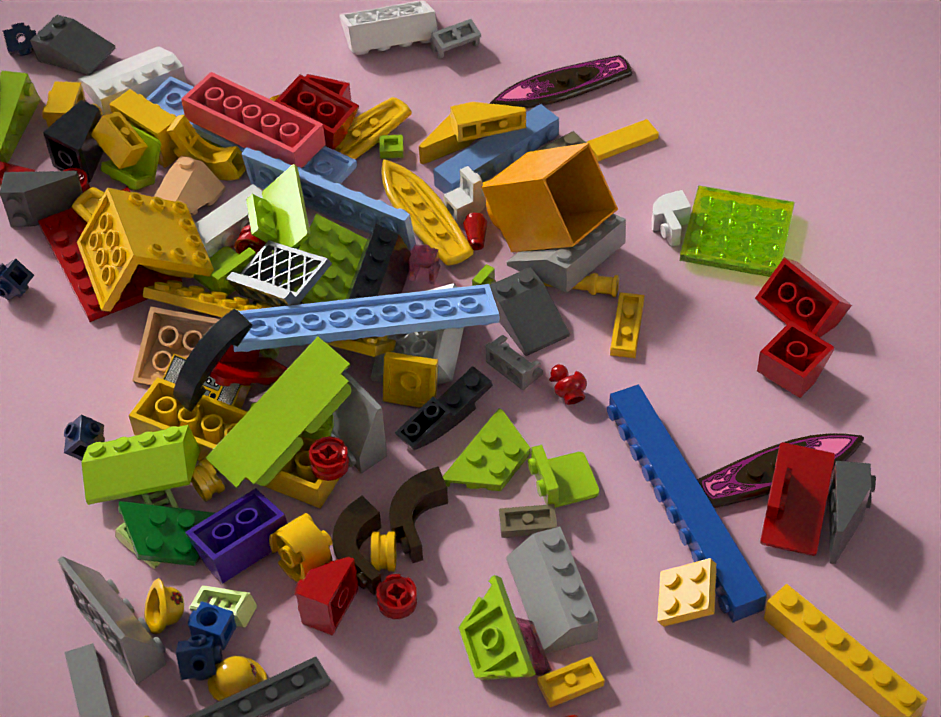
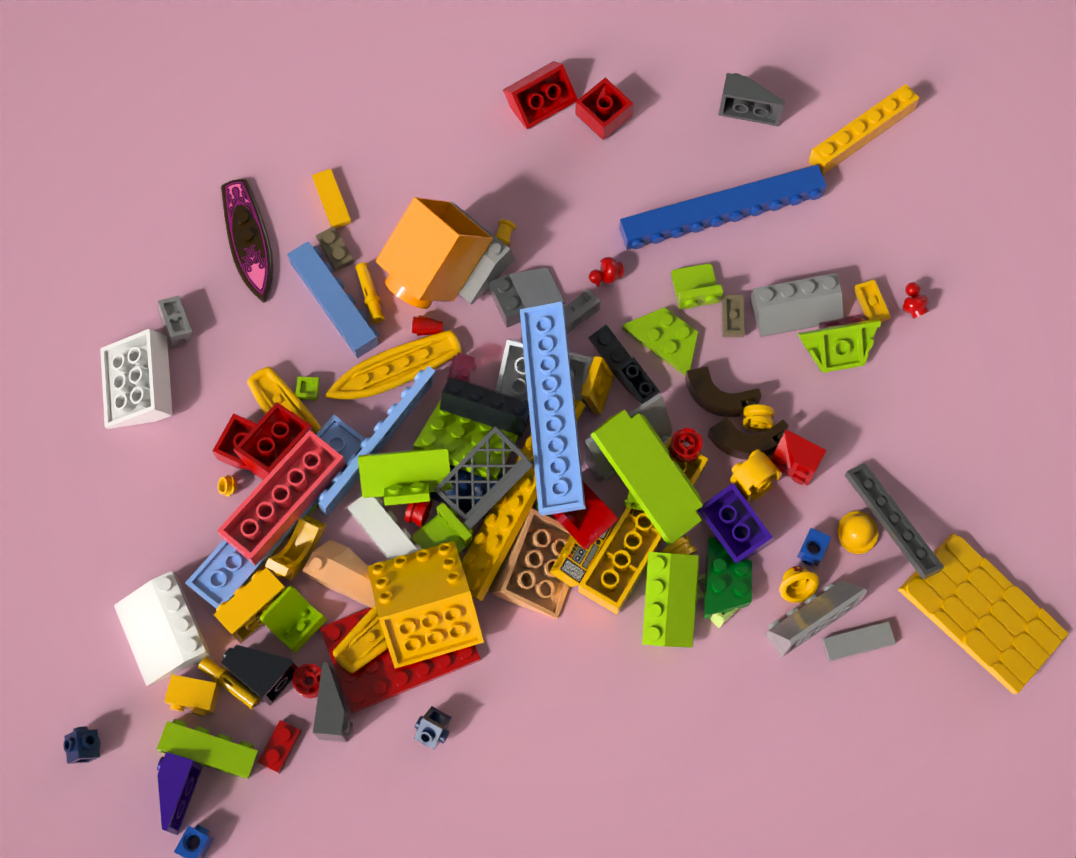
camera: 85 degrees left, 20 degrees up
(70, 45) = (104, 689): dark grey slope -> none
(80, 434) = (625, 652): dark blue brick -> none
(119, 140) = (278, 626): yellow brick -> none
(198, 657) = (845, 555): dark blue brick -> none
(206, 355) = (591, 525): black slope -> none
(242, 602) = (797, 524): yellowish green slope -> none
(393, 607) = (798, 405): red wheel -> none
(441, 143) = (298, 329): yellow slope -> none
(467, 198) = (391, 327): white brick -> none
(484, 119) = (307, 303): yellow slope -> none
(485, 276) = (489, 324): lime plate -> none
(627, 325) = (544, 223): yellow tile -> none
(669, 214) = (432, 177): white brick -> none
(687, 592) = (808, 215): yellow plate -> none
(737, 231) = (457, 127): clear neon green plate -> none
(753, 474) = (695, 141): dark brown piece -> none
(797, 499) = (731, 132): red bracket -> none

